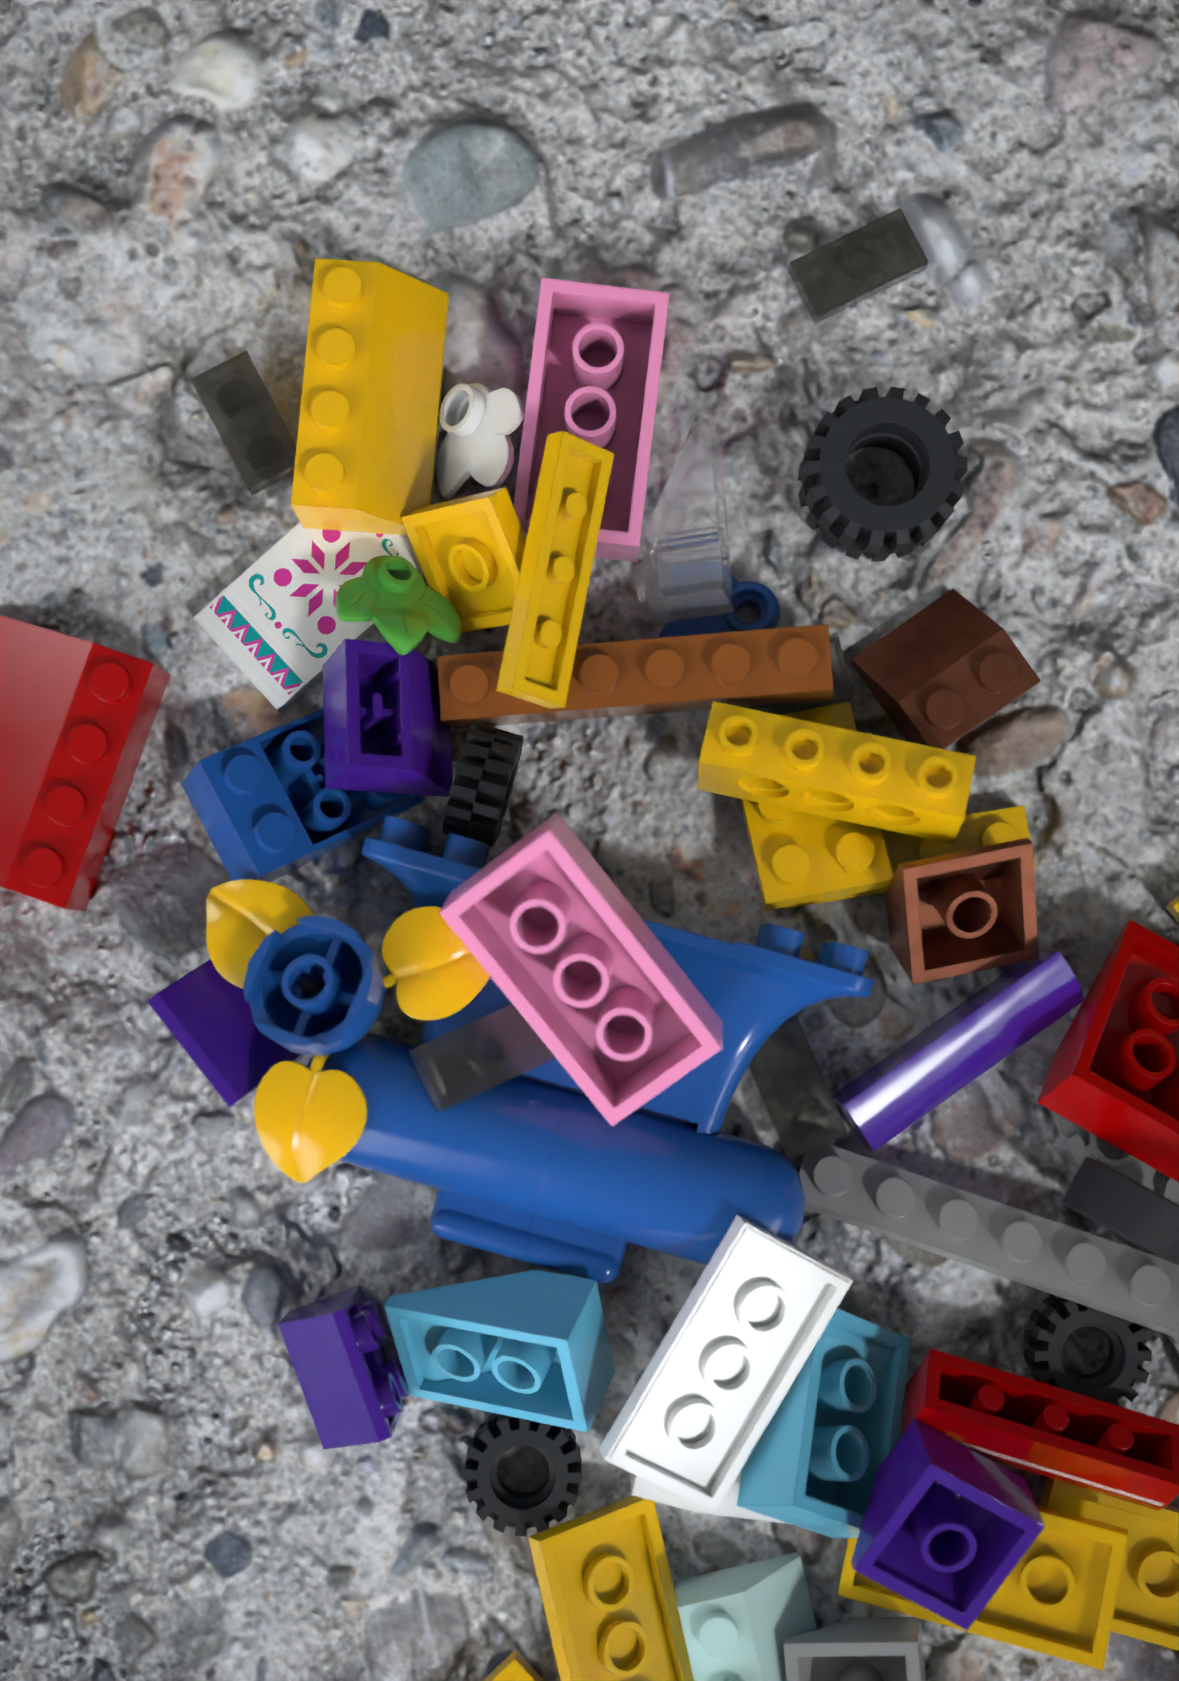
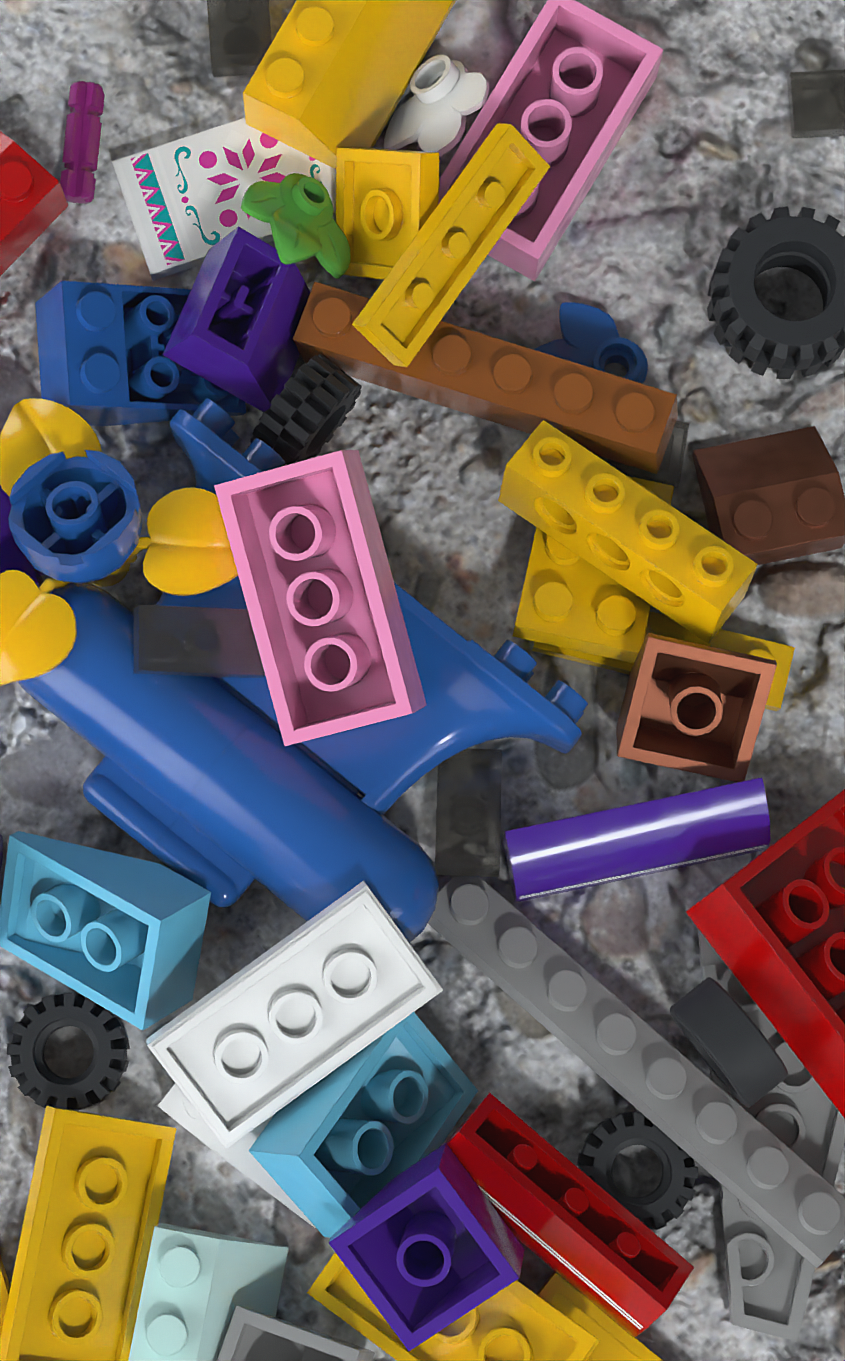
camera: 25 degrees right, 5 degrees down
(156, 610) = (82, 141): none -> magenta axle
(687, 538) = (590, 271): clear slope -> none

